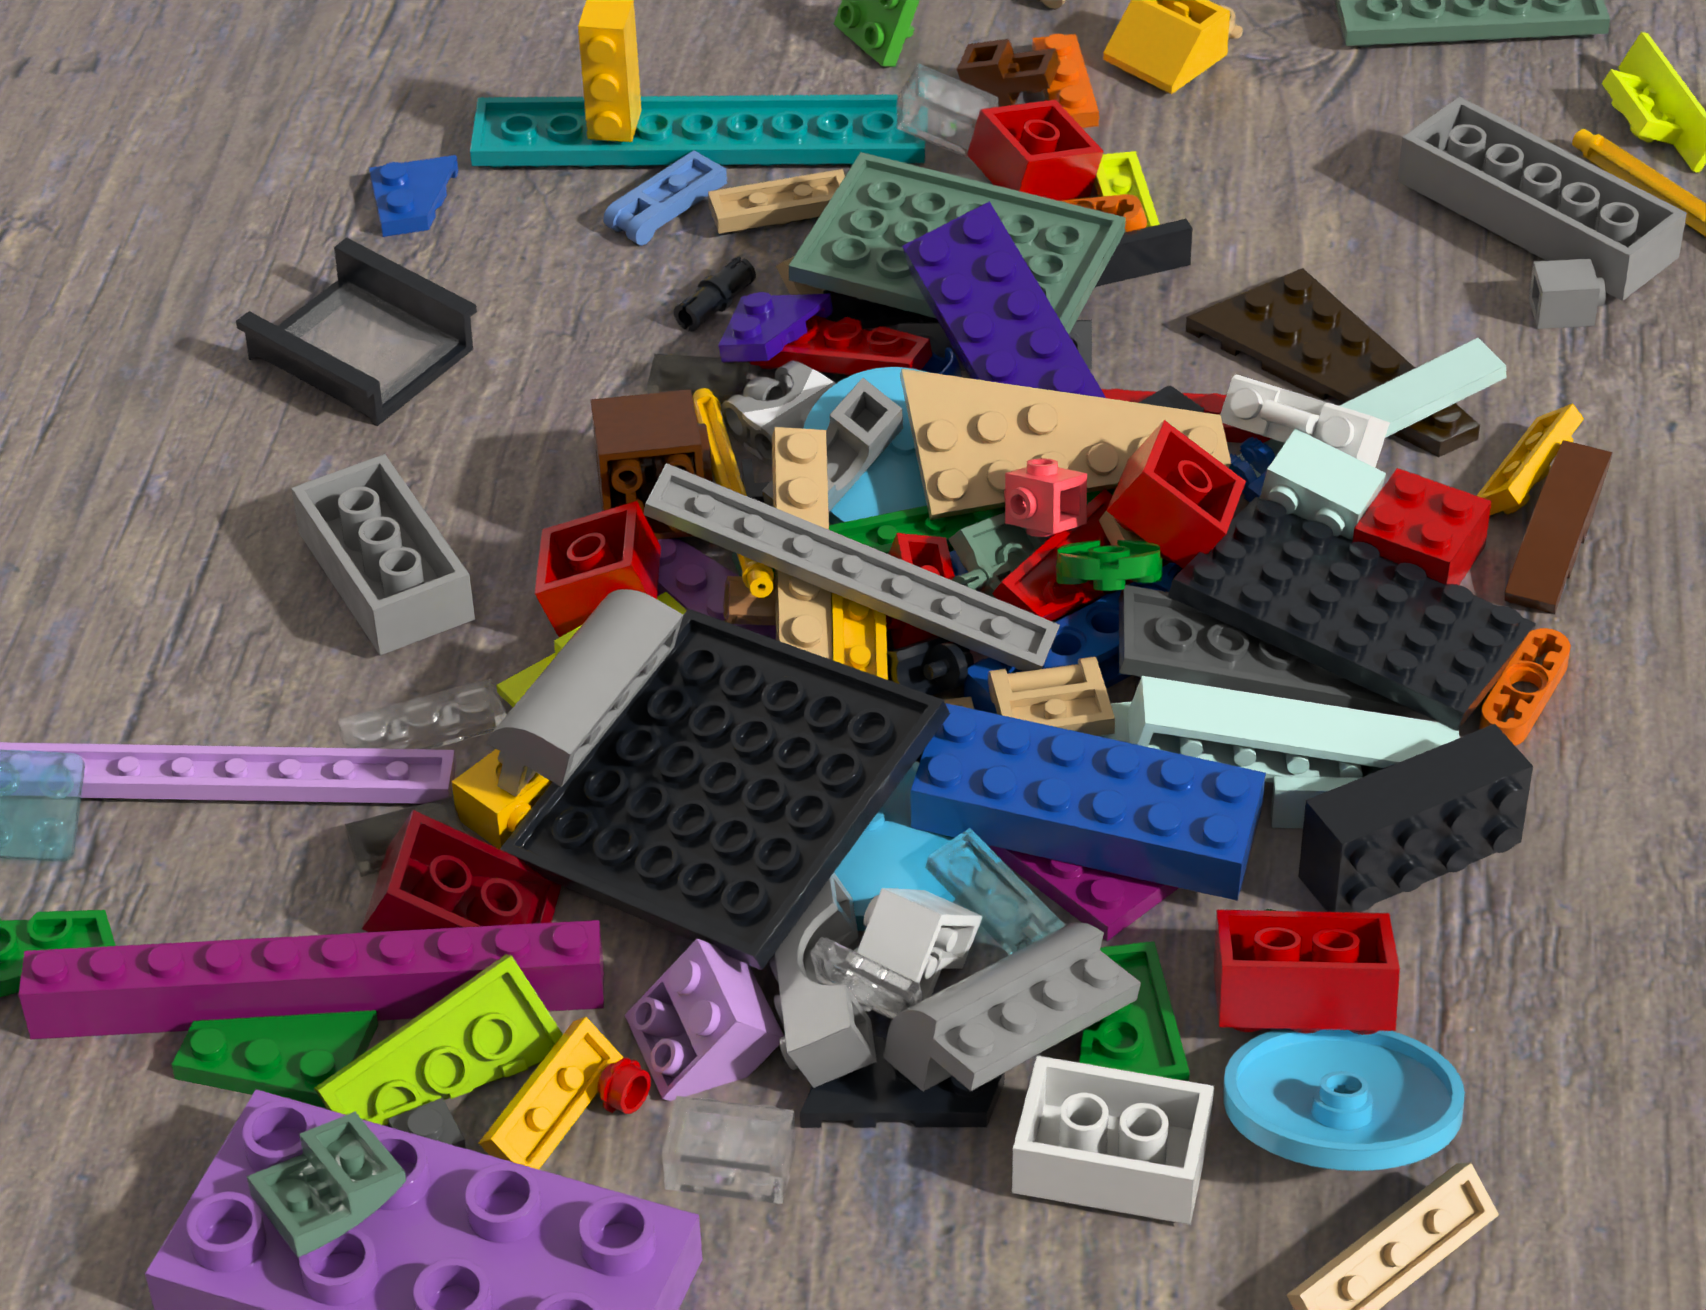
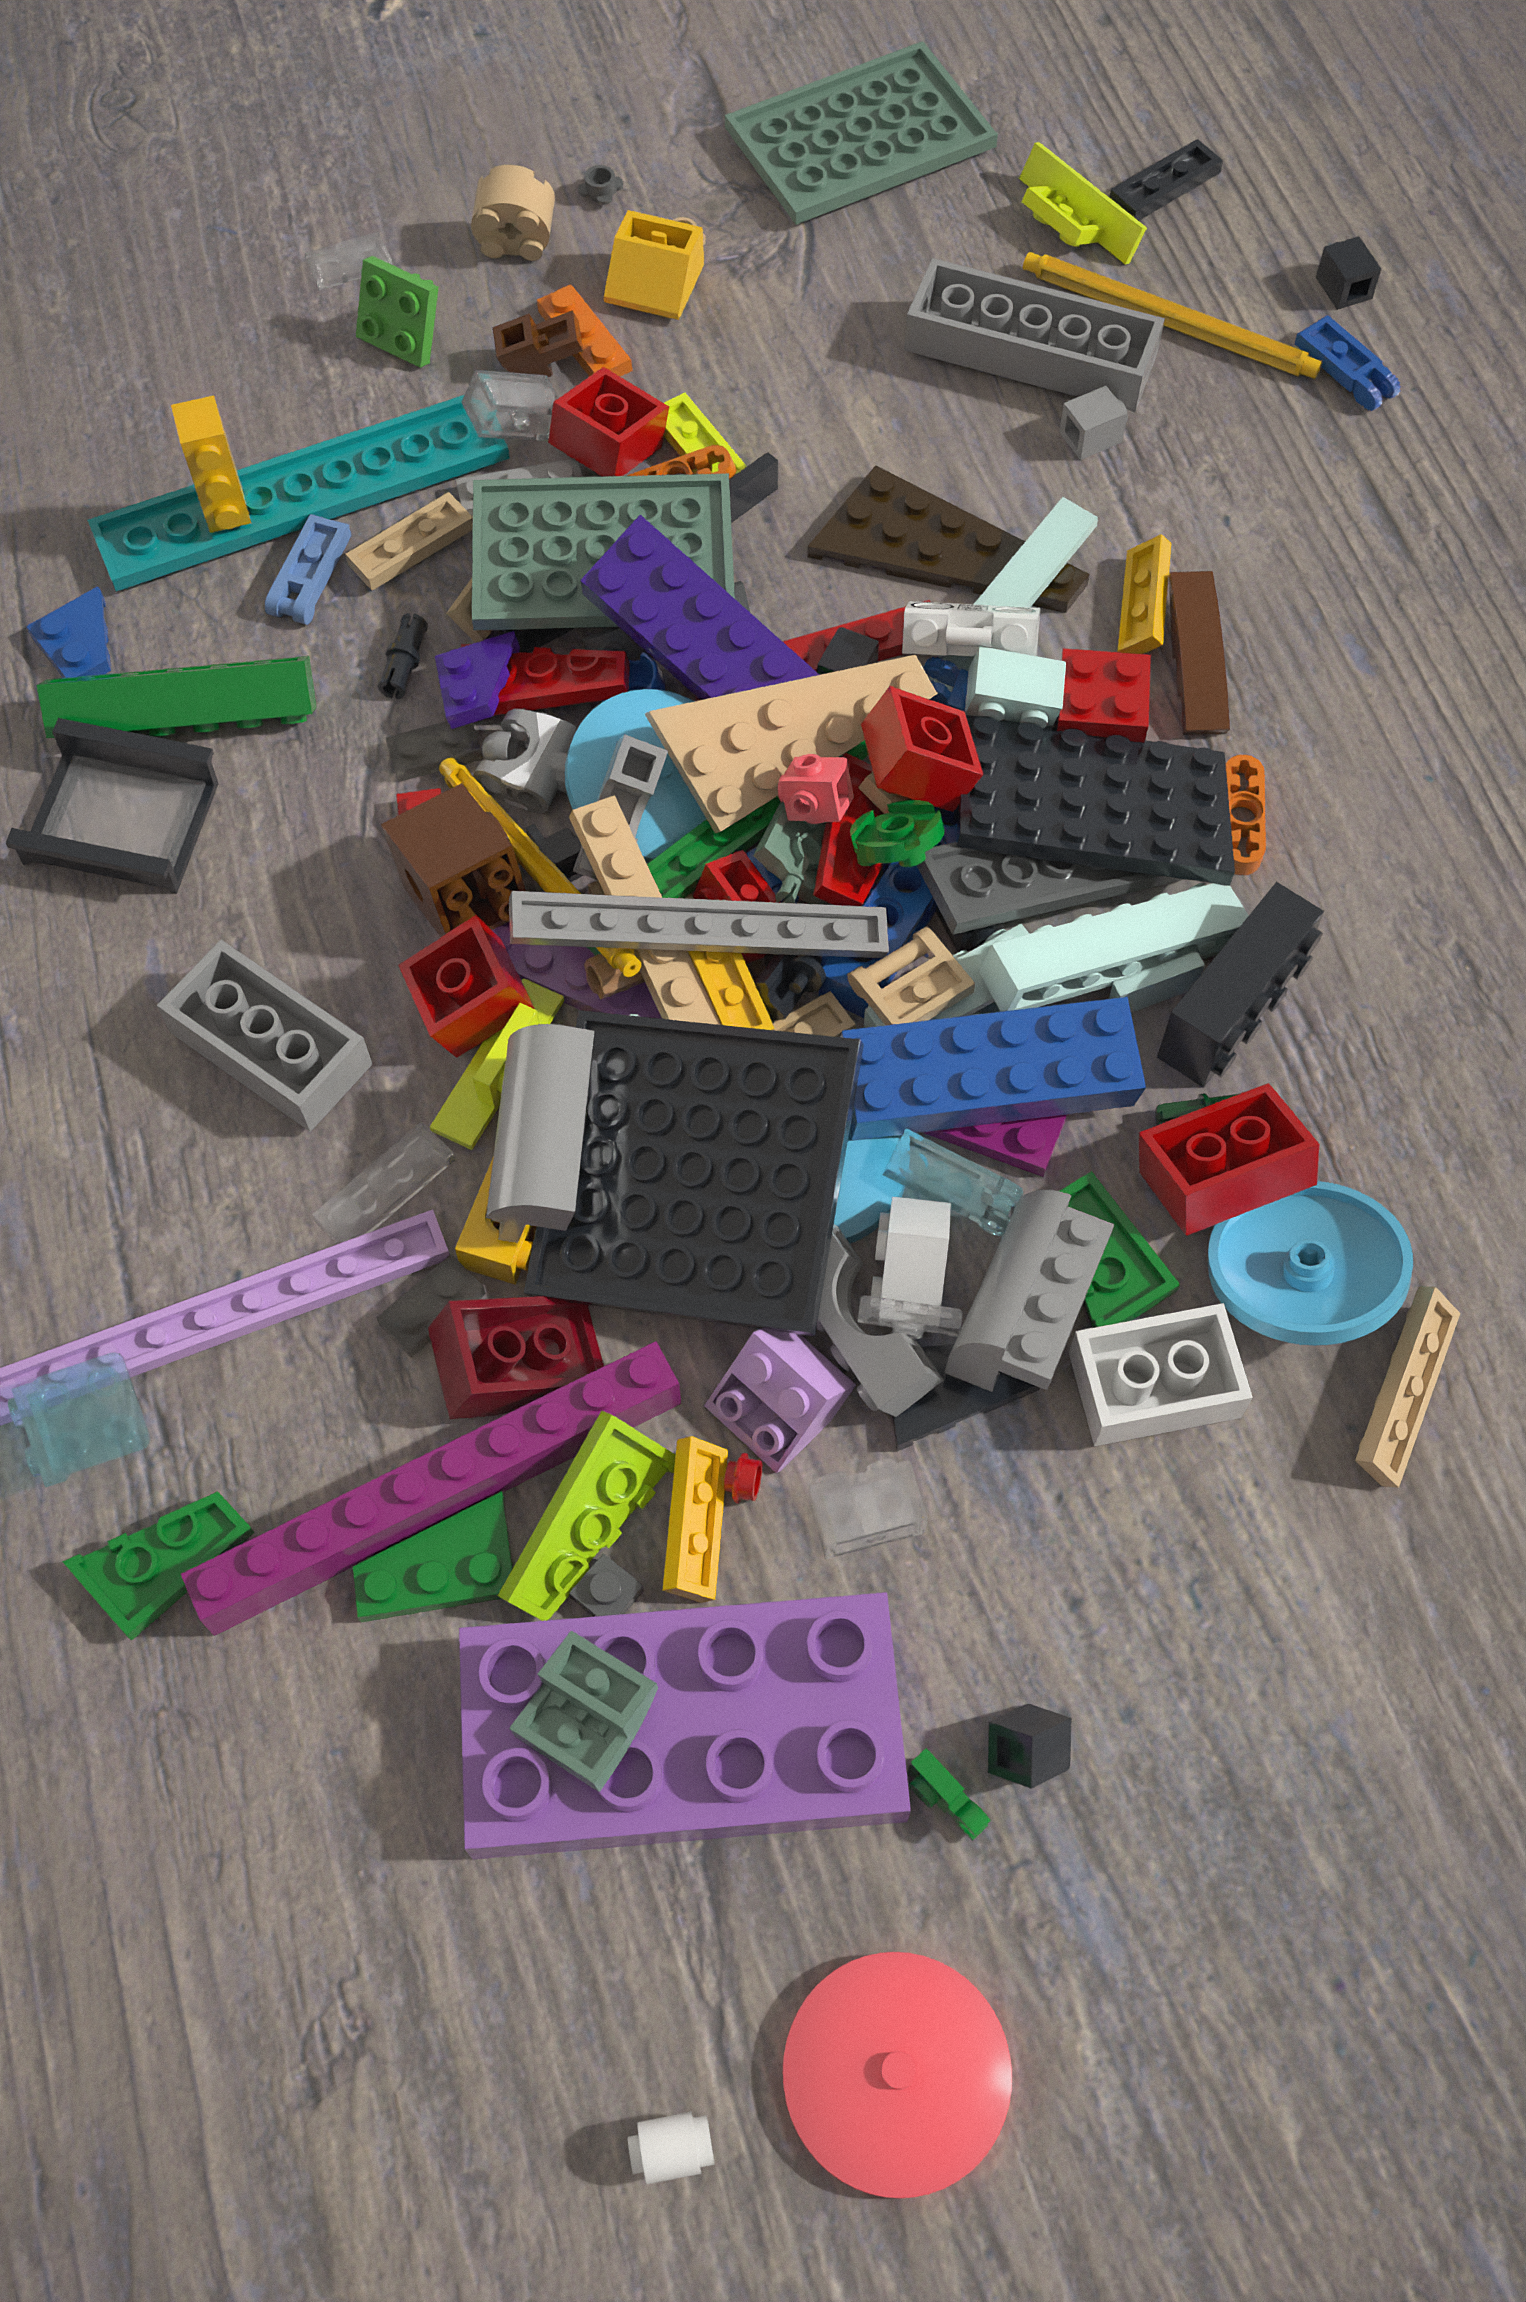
camera: 25 degrees left, 20 degrees up
(485, 261) = (184, 696): none -> green brick

